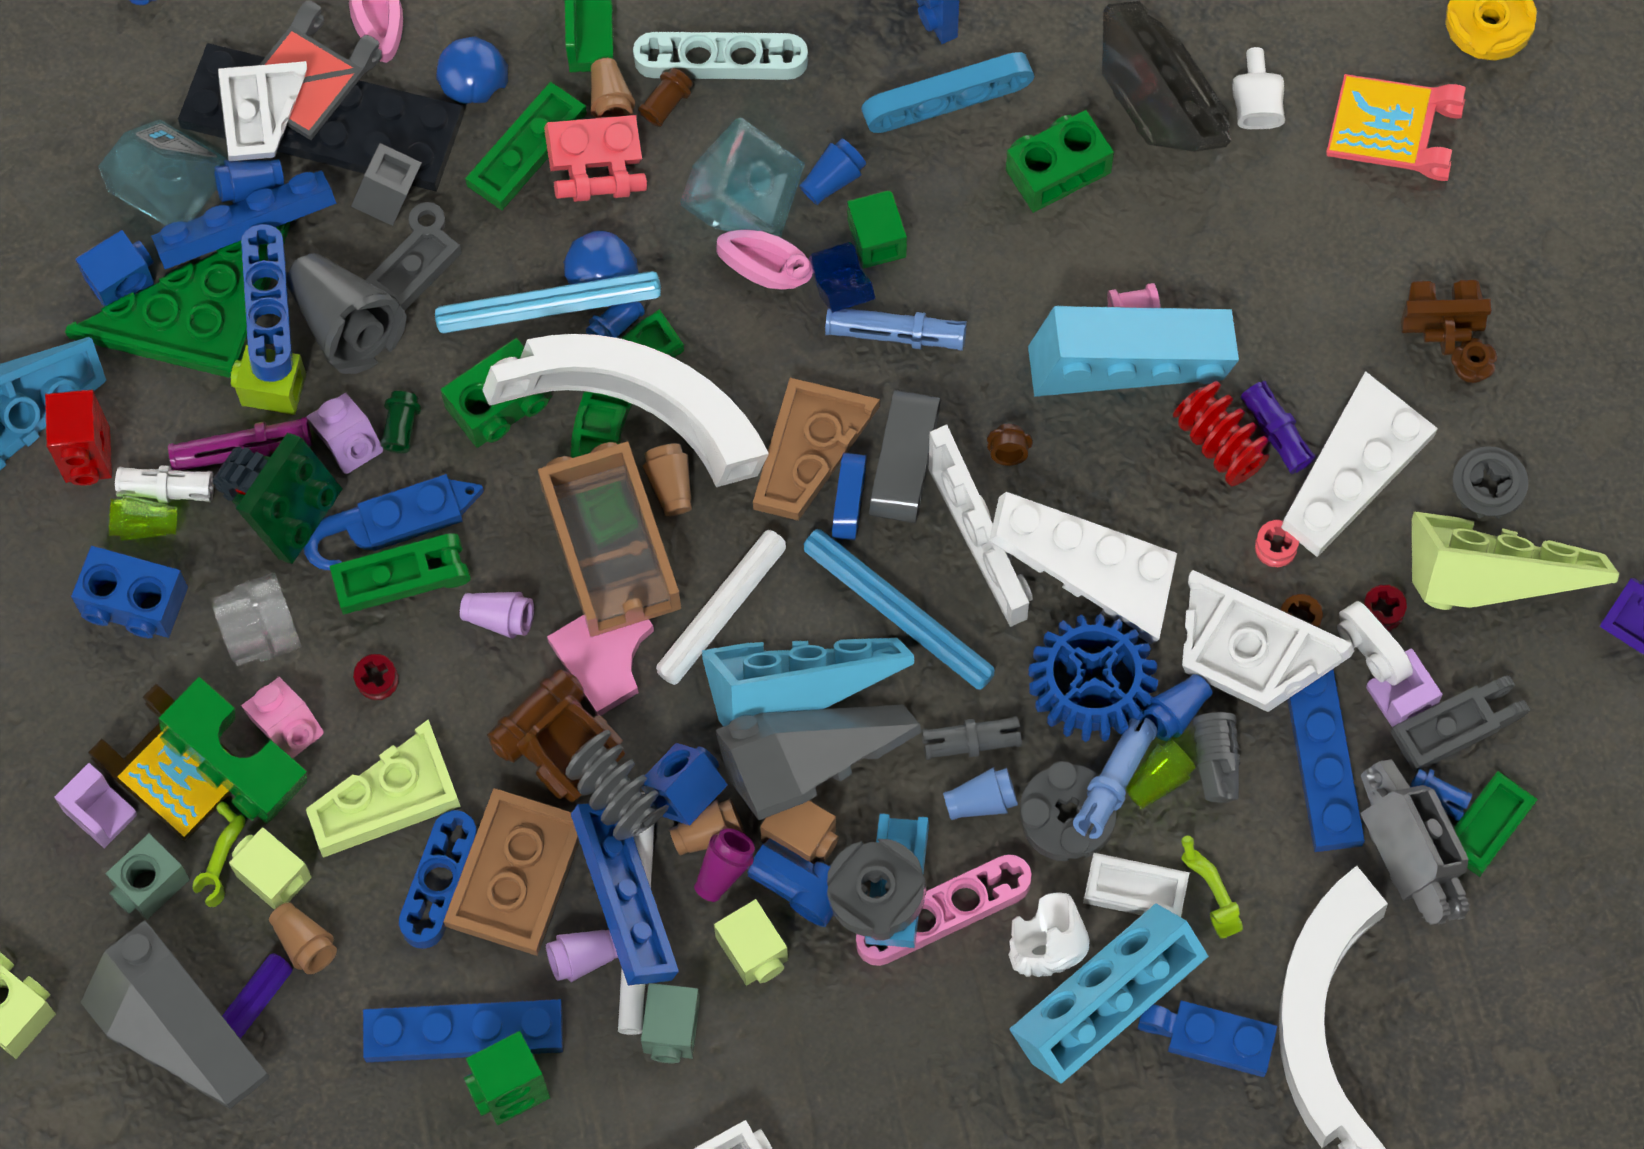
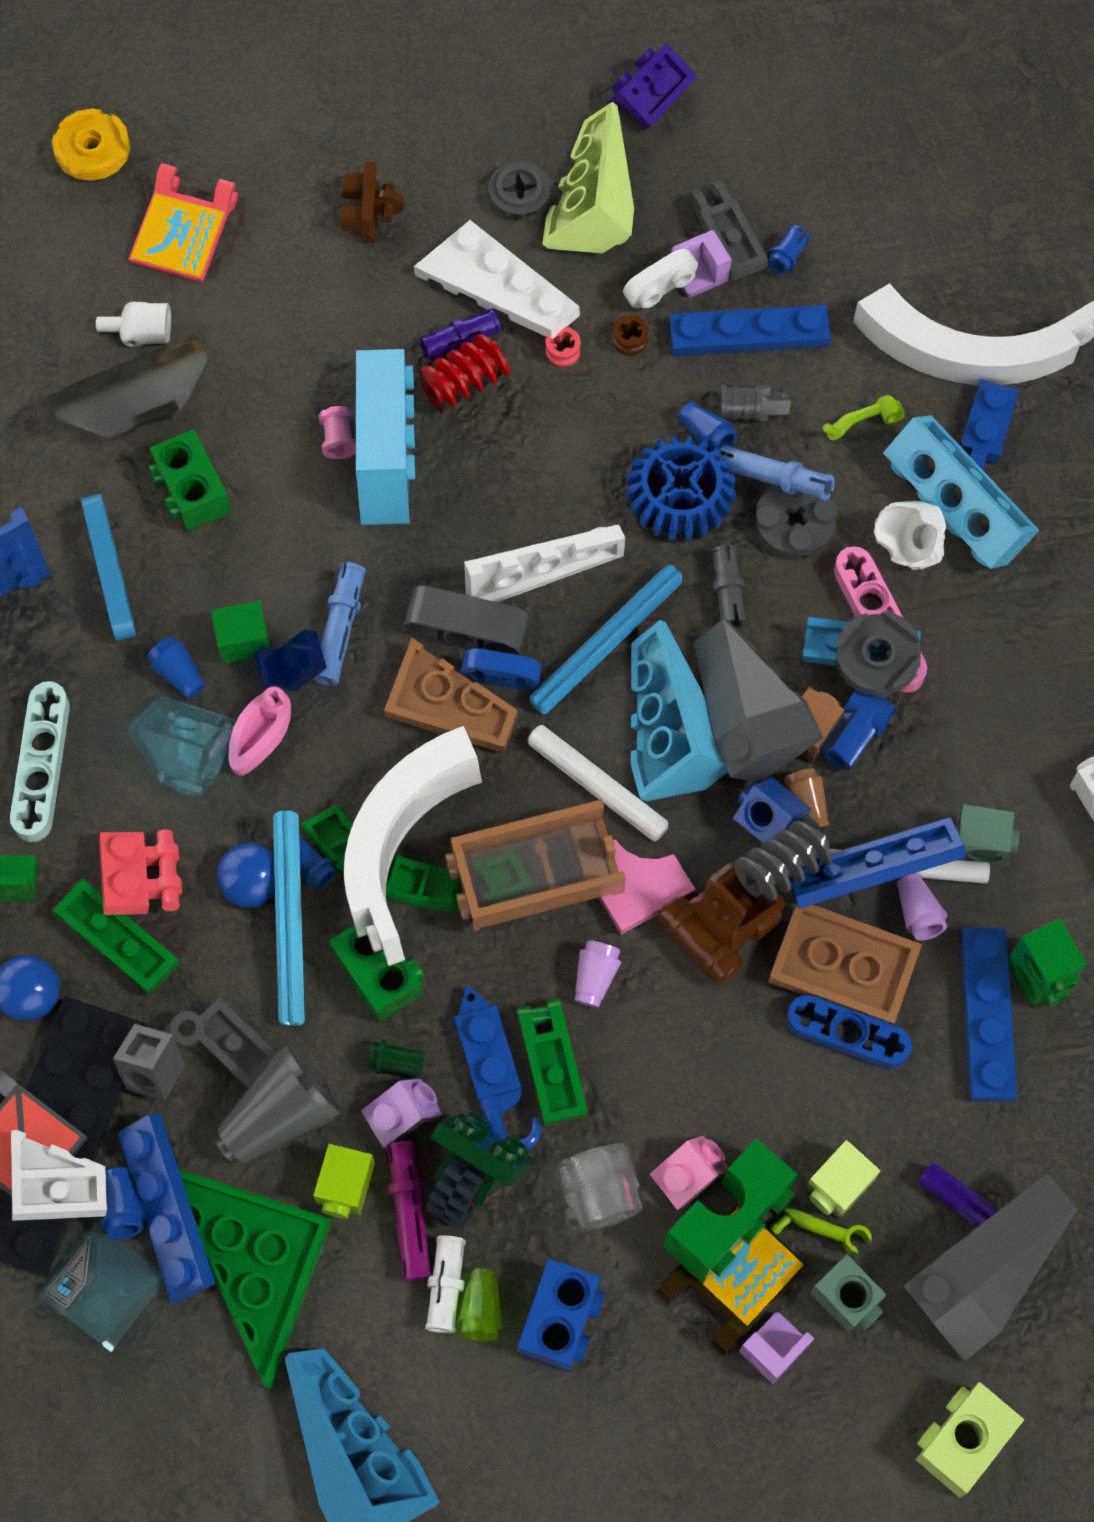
camera: 90 degrees left, 0 degrees up
(78, 436) = (401, 1361): red brick -> none
(116, 268) = (208, 1334): blue brick -> none
(266, 302) = (269, 1180): blue beam -> none
(302, 939) = (906, 1152): medium nougat cone -> none
(390, 677) = (648, 1099): dark red bush -> none
(390, 795) = (769, 1074): yellowish green wing -> none
(609, 90) = (69, 859): medium nougat cone -> none
(666, 96) = (79, 809): reddish brown pin -> none
(669, 476) = (469, 817): medium nougat cone -> none
(724, 862) = (845, 781): magenta cone -> none
(752, 943) = (913, 766): yellowish green brick -> none
(981, 796) = (781, 578): medium blue cone -> none
(1009, 444) = (459, 540): reddish brown plate -> none
(1093, 561) = (579, 477): white wing -> none
(1134, 885) = (860, 474): white tile -> none
(1160, 774) = (764, 440): clear neon green cone -> none
(1253, 646) = (658, 367): white wing -> none
(1392, 596) = (616, 265): dark red bush -> none
(1416, 843) = (833, 264): flat silver hinge -> none
(1474, 371) = (412, 197): reddish brown plate -> none
(1492, 821) = (824, 227): green tile -> none

